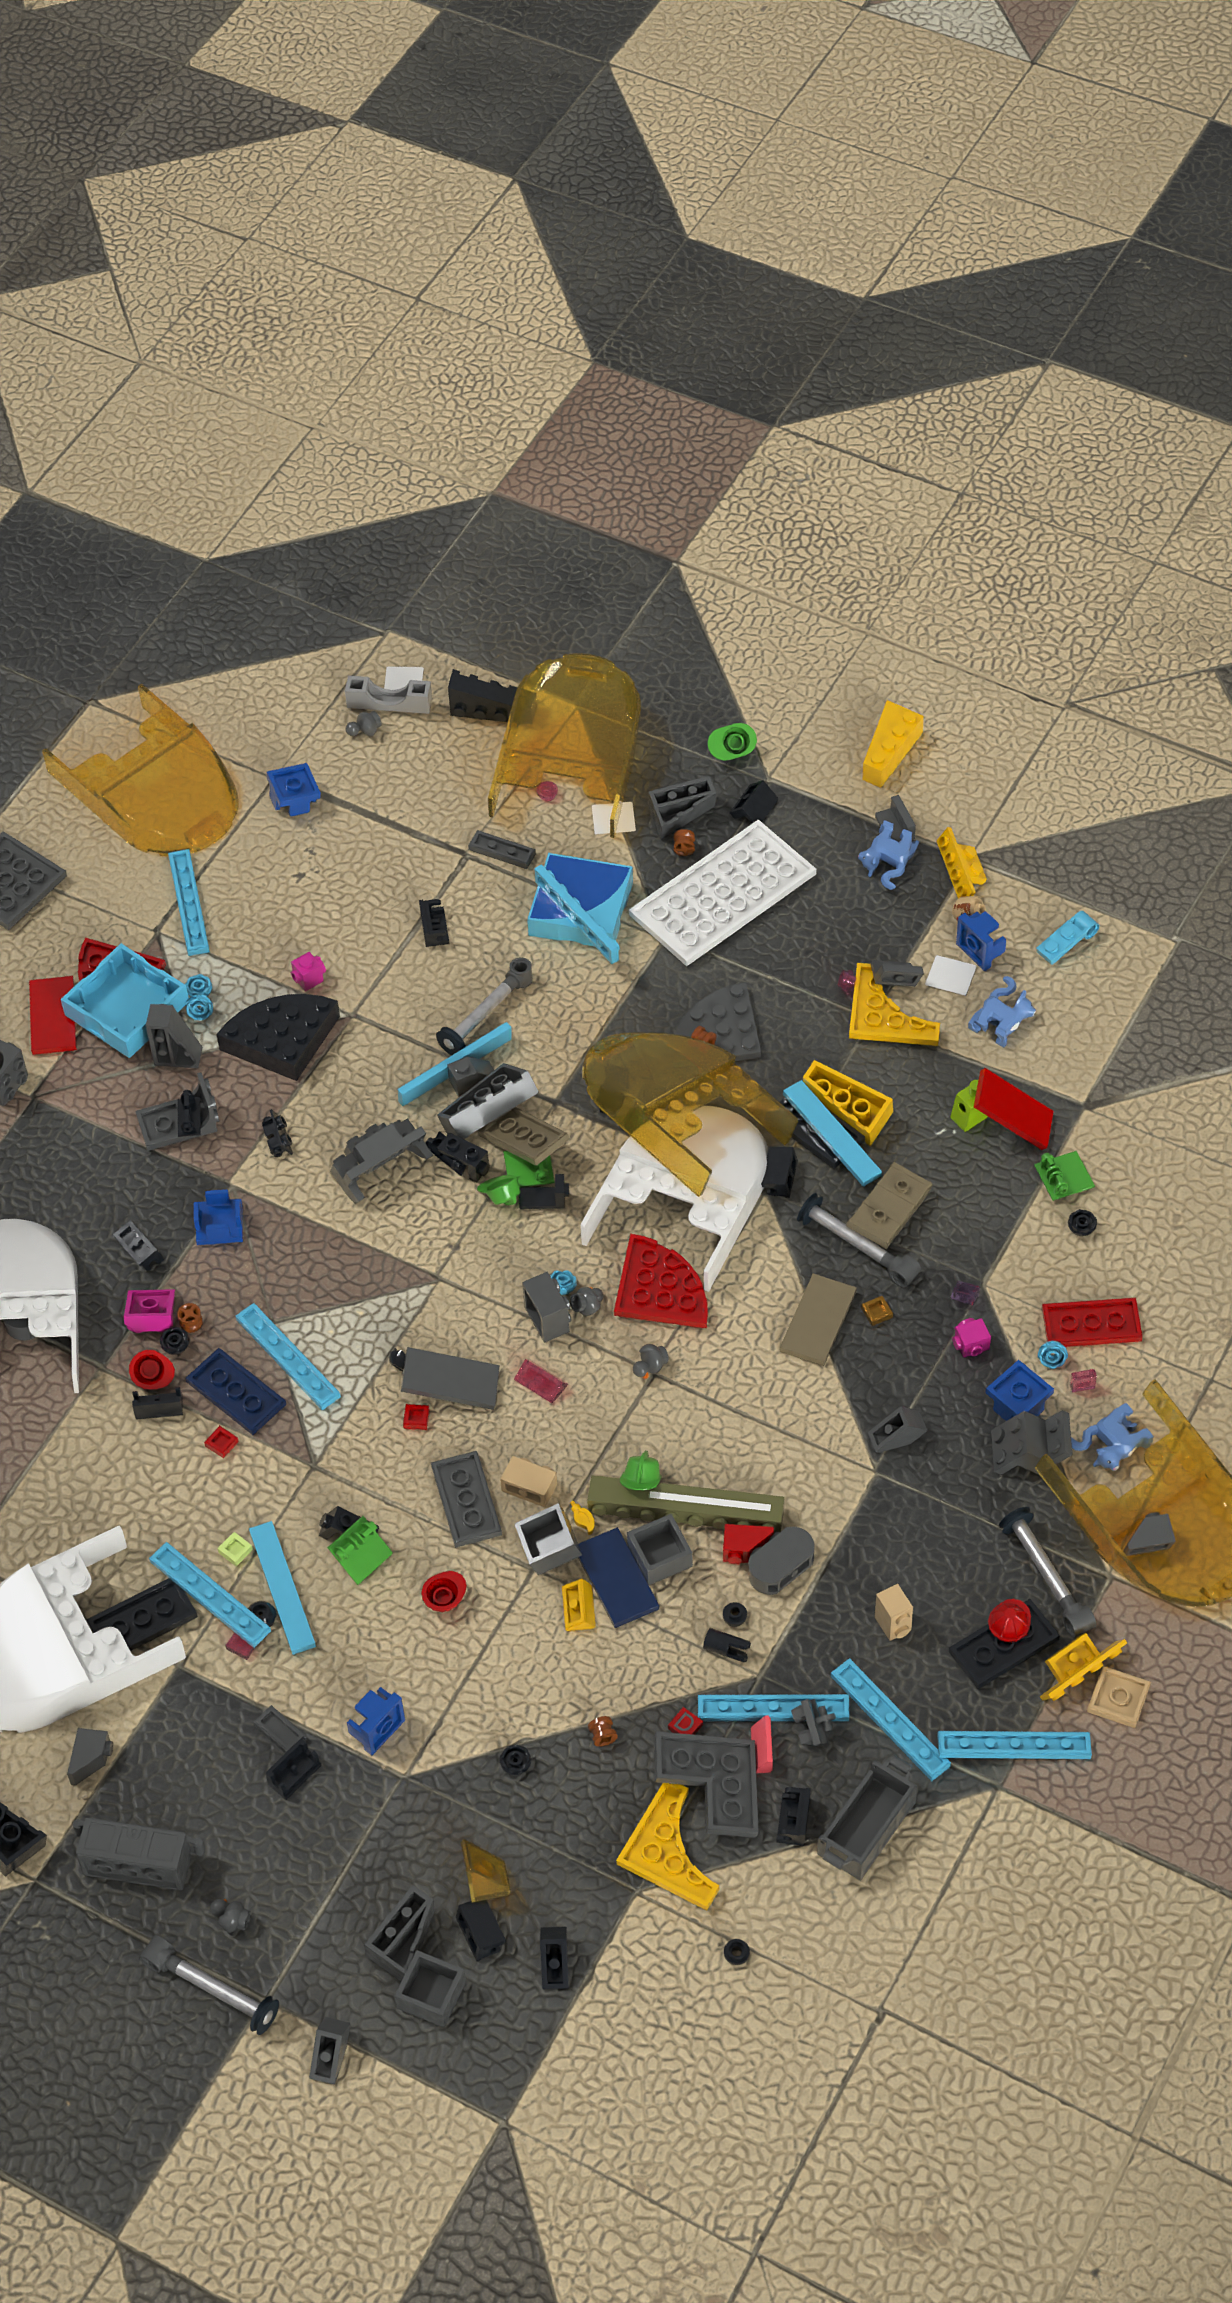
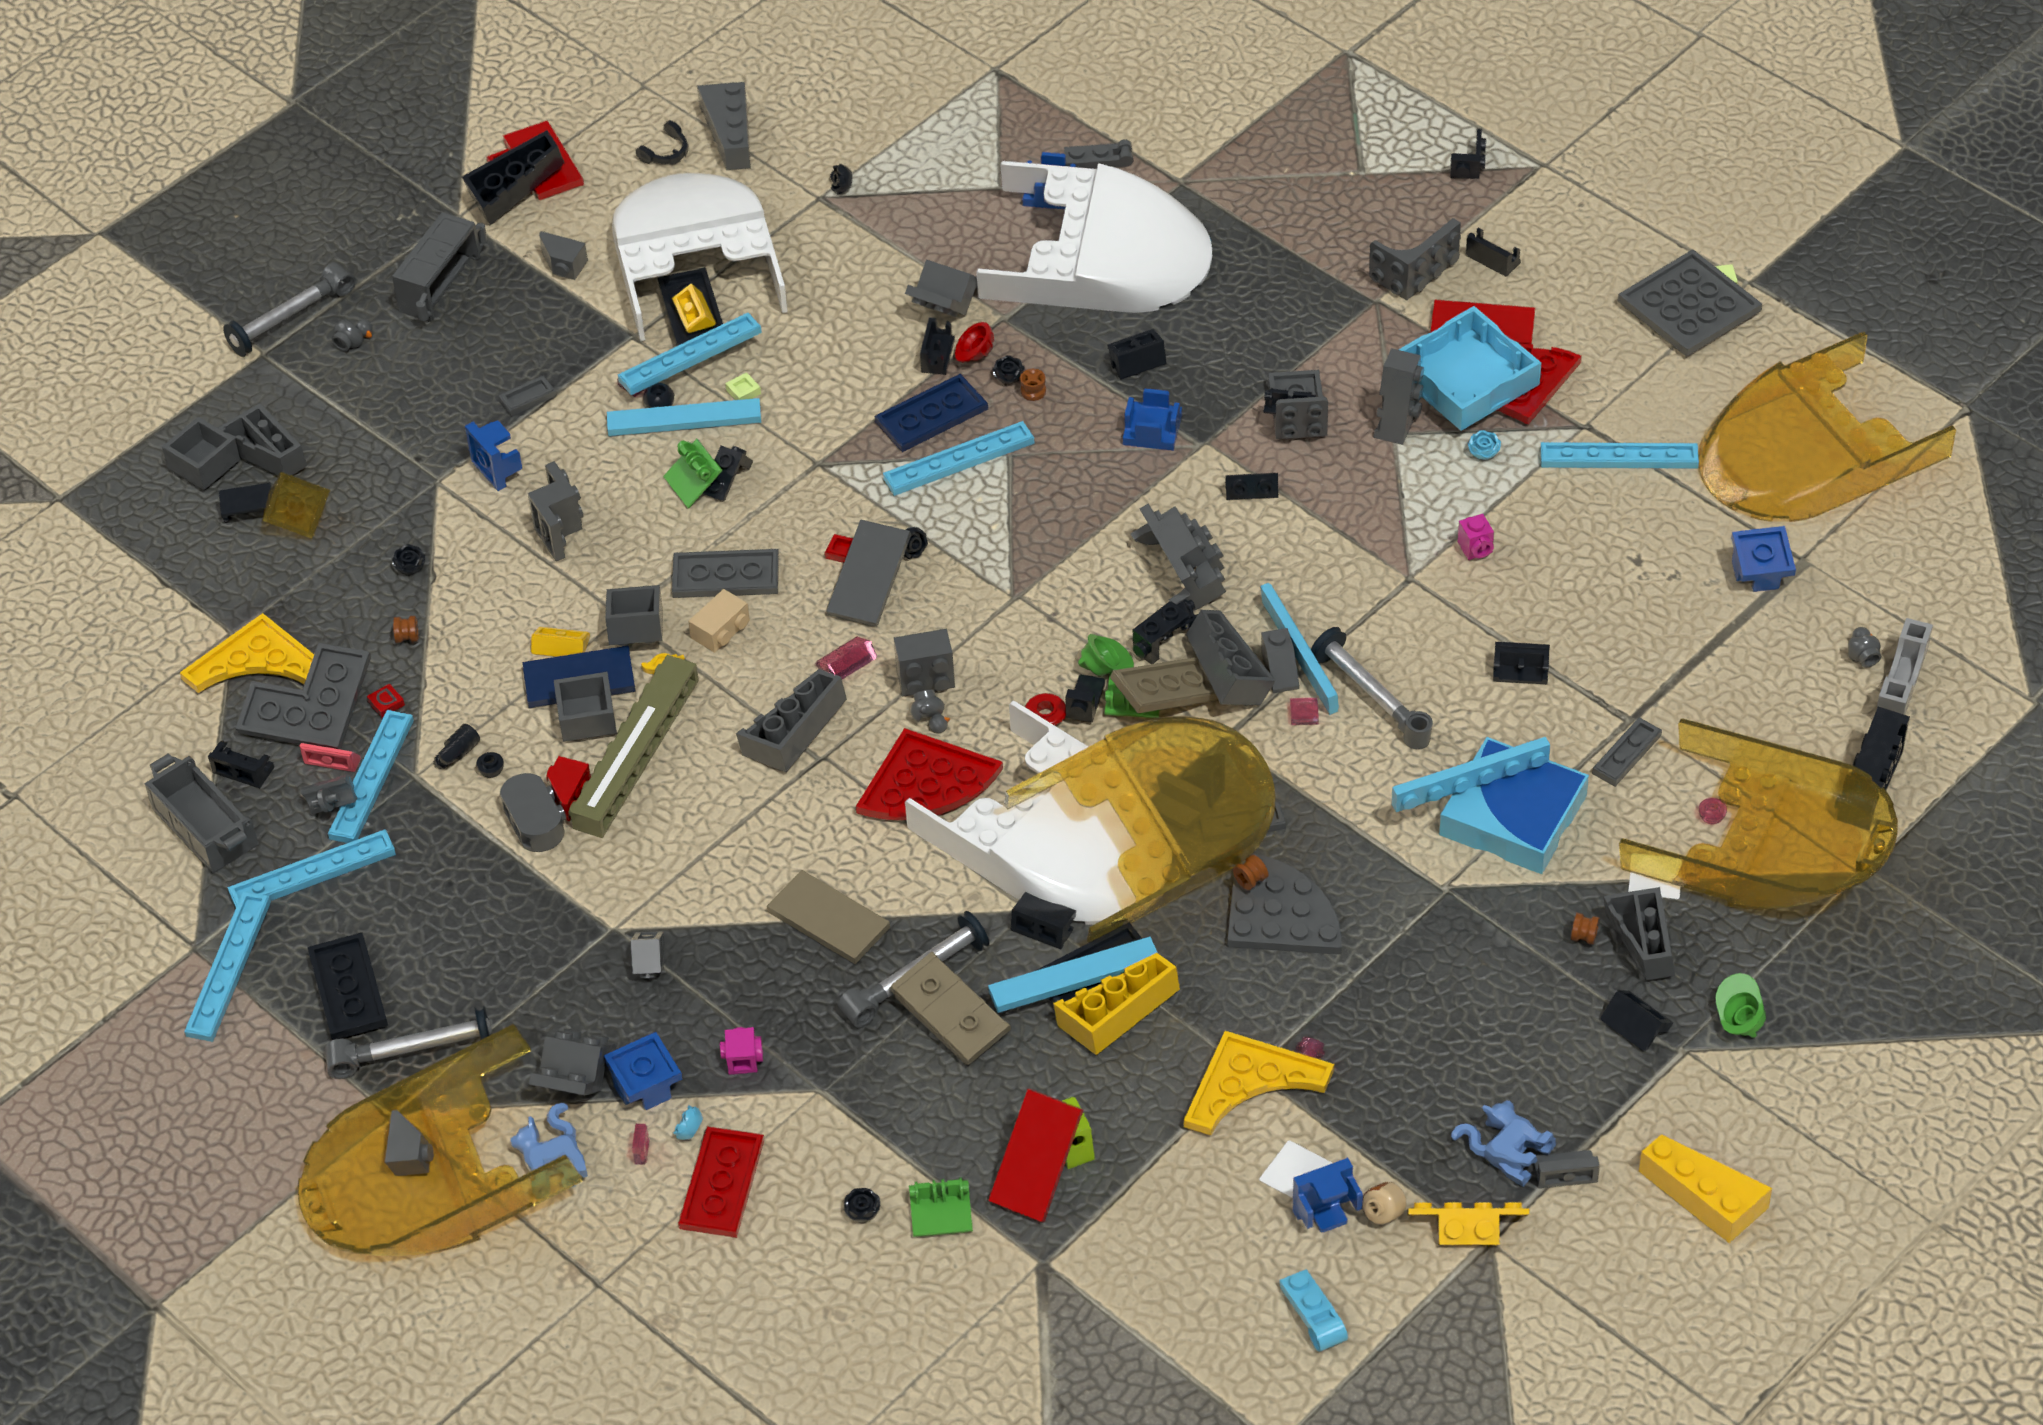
camera: 105 degrees right, 5 degrees down
(87, 1406) = (943, 289): none -> dark grey bracket
(149, 1310) = (1053, 351): dark pink slope -> none
(150, 1609) = (693, 309): none -> yellow slope
(199, 1013) = (1453, 440): medium azure plate -> none
(221, 1441) = (874, 394): red tile -> none
(280, 1032) = (1389, 502): black brick -> none
(293, 1769) = (477, 395): black hinge -> none
(329, 2050) = (187, 381): dark grey slope -> none
(400, 676) = (1940, 703): white sticker -> none
(438, 1641) = (556, 510): none -> dark grey bracket
(444, 1591) = (614, 527): red piece -> none
(515, 1053) = (1304, 711): none -> clear pink tile
(554, 1957) = (192, 551): black slope -> none
(559, 1214) = (1049, 702): none -> red piece
(565, 1280) = (964, 685): medium azure plate -> none
(633, 1388) = (794, 722): none -> dark grey wedge
(641, 1473) = (678, 706): bright green piece -> none
(652, 1360) = (827, 751): dark grey animal -> none
(722, 892) = (1494, 955): white plate -> none
(736, 1944) = (126, 691): black plate -> none
(877, 1310) = (819, 975): pearl gold tile -> none
(894, 1612) = (417, 885): tan brick -> none
(896, 973) = (1307, 1100): dark grey panel -> none
(965, 1292) = (807, 1061): clear purple tile -> none
(1002, 1015) = (1205, 1198): medium blue animal -> none
(1010, 1620) = (367, 992): red piece -> none
(1075, 1661) = (293, 1044): yellow bracket -> none
(1119, 1697) = (241, 1078): tan tile -> none

